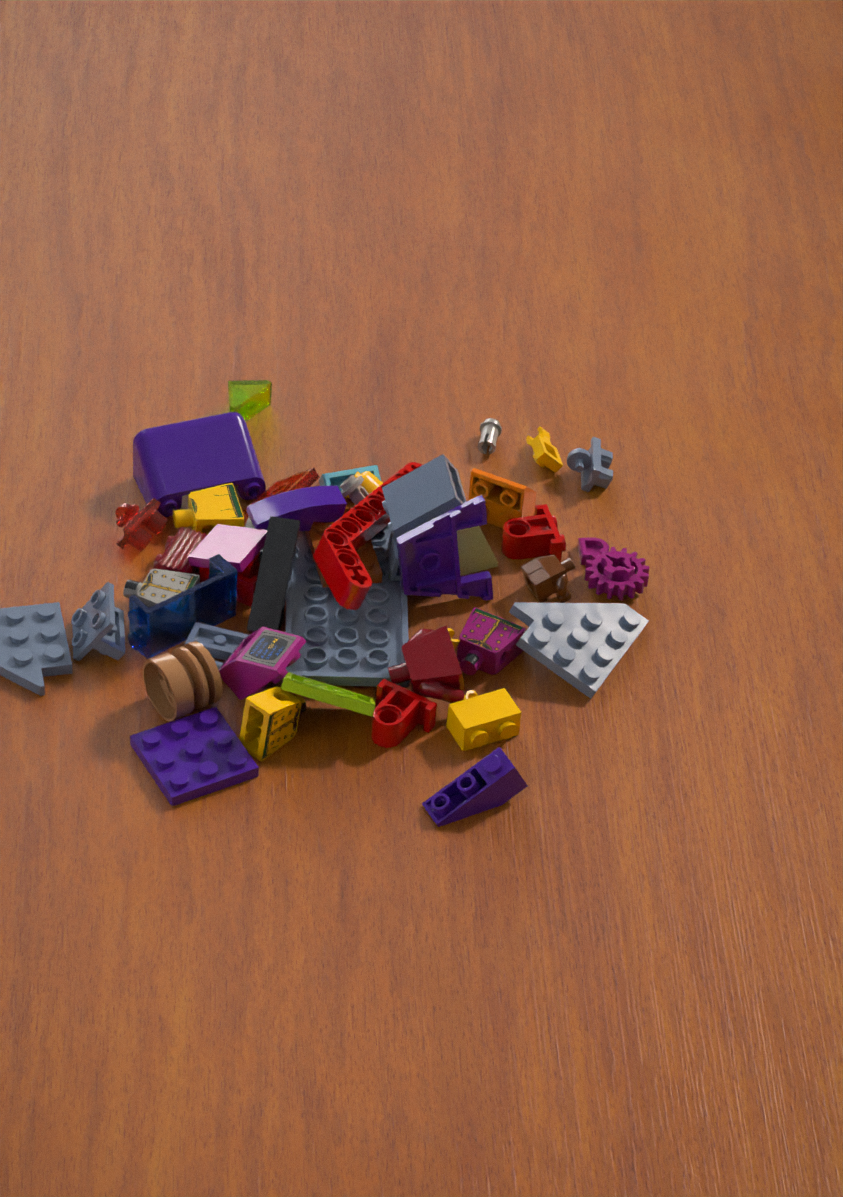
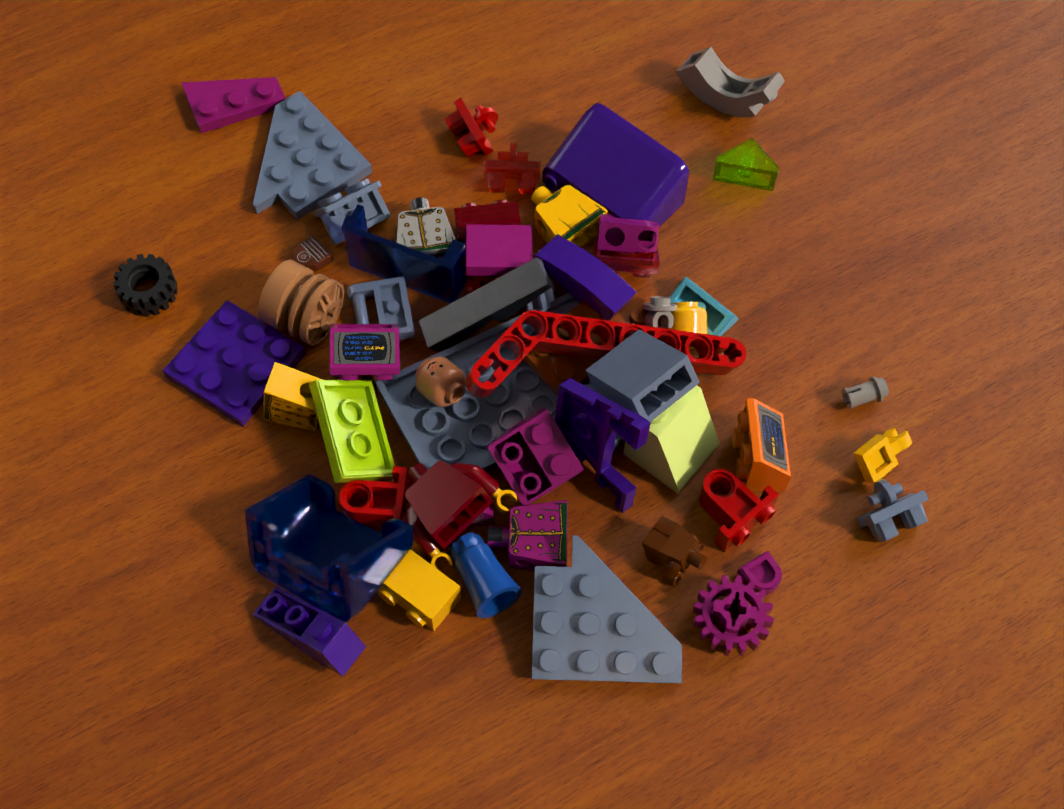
camera: 65 degrees right, 20 degrees up
(72, 766) = (140, 270): none -> black tyre
(73, 525) = (475, 139): none -> red hips
(121, 673) = (312, 253): none -> copper tile
(163, 378) = (725, 90): none -> light grey arch
(265, 481) = (627, 234): none -> magenta leg
(323, 629) = (440, 381): none -> nougat head
(426, 600) = (534, 456): none -> magenta slope
(430, 749) = (320, 552): none -> clear blue windscreen
(492, 677) = (483, 576): none -> blue plant

